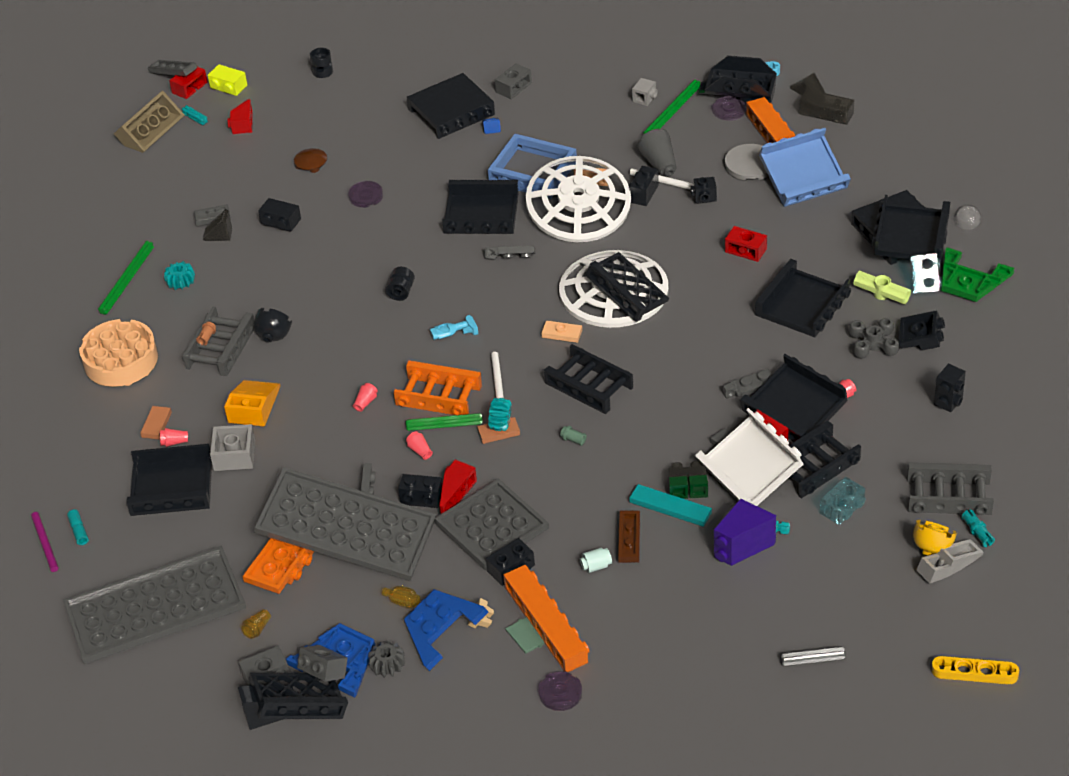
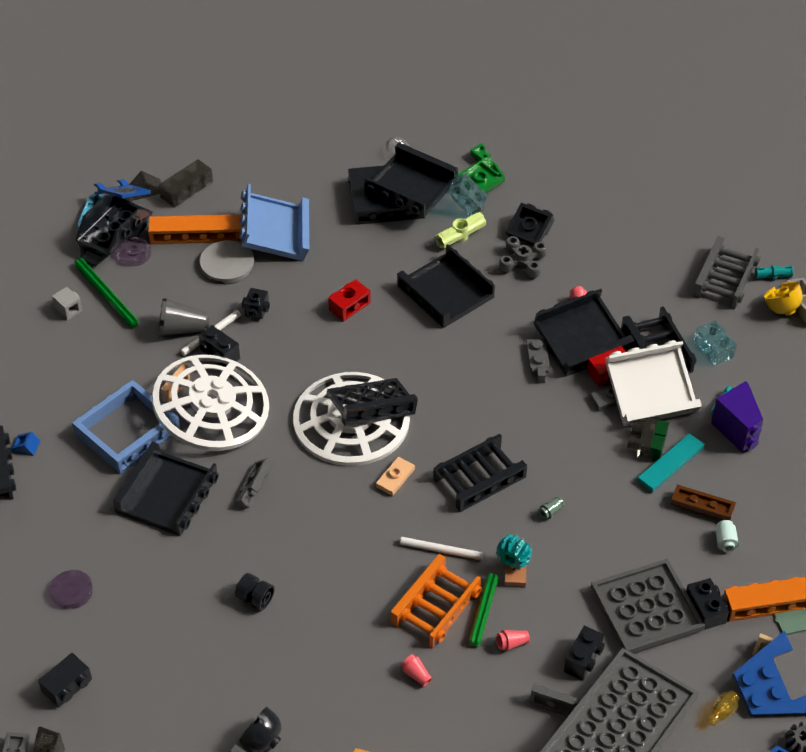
camera: 75 degrees left, 5 degrees up
(448, 329) = (343, 570): medium azure piece -> none
(456, 483) = (577, 613): red slope -> none
(782, 72) = (122, 191): none -> blue flag
(949, 388) = (616, 228): black brick -> none

